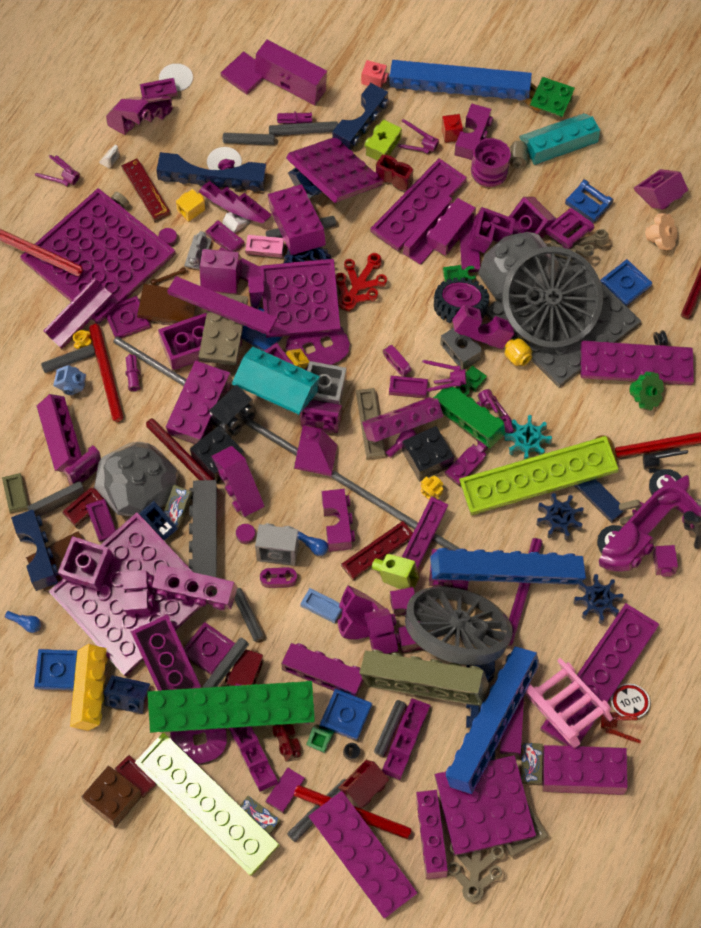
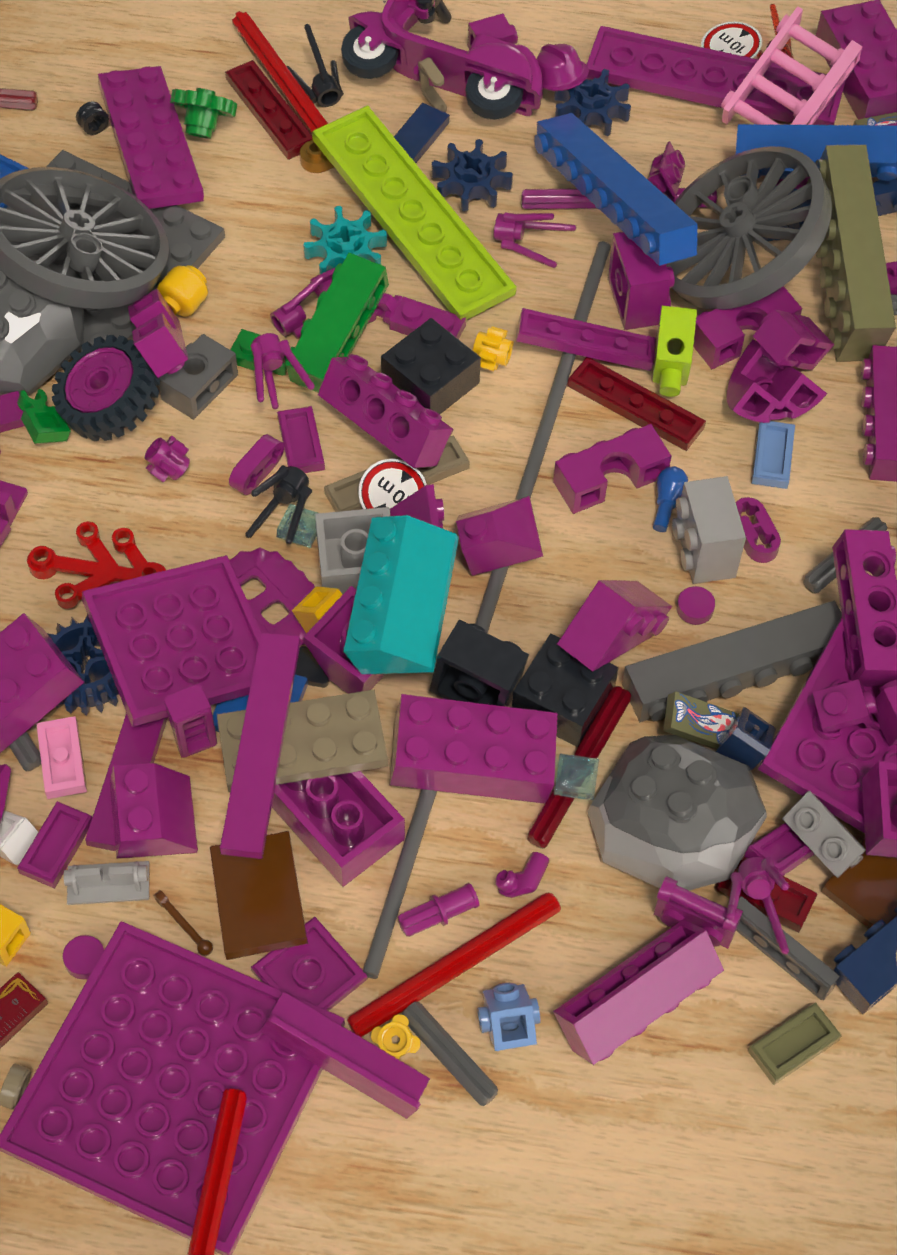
camera: 110 degrees left, 5 degrees down
(83, 493) = (757, 880): none -> magenta plant
(102, 531) = (824, 834): none -> light grey hinge
(132, 411) = (523, 882): none -> magenta arm
(148, 556) = (845, 706): none -> magenta bracket
(169, 442) = (576, 777): none -> clear light blue tile
(355, 371) = (306, 529): none -> clear light blue tile
(355, 414) = (389, 483): none -> sticker
(376, 368) = (289, 486): none -> black plant
(412, 321) = (167, 458): none -> magenta gear
(513, 525) = (512, 226): none -> magenta plant
(528, 618) = (667, 170): none -> magenta hinge
(625, 585) = (561, 67): none -> magenta piece
(647, 431) = (269, 108): none -> dark red tile

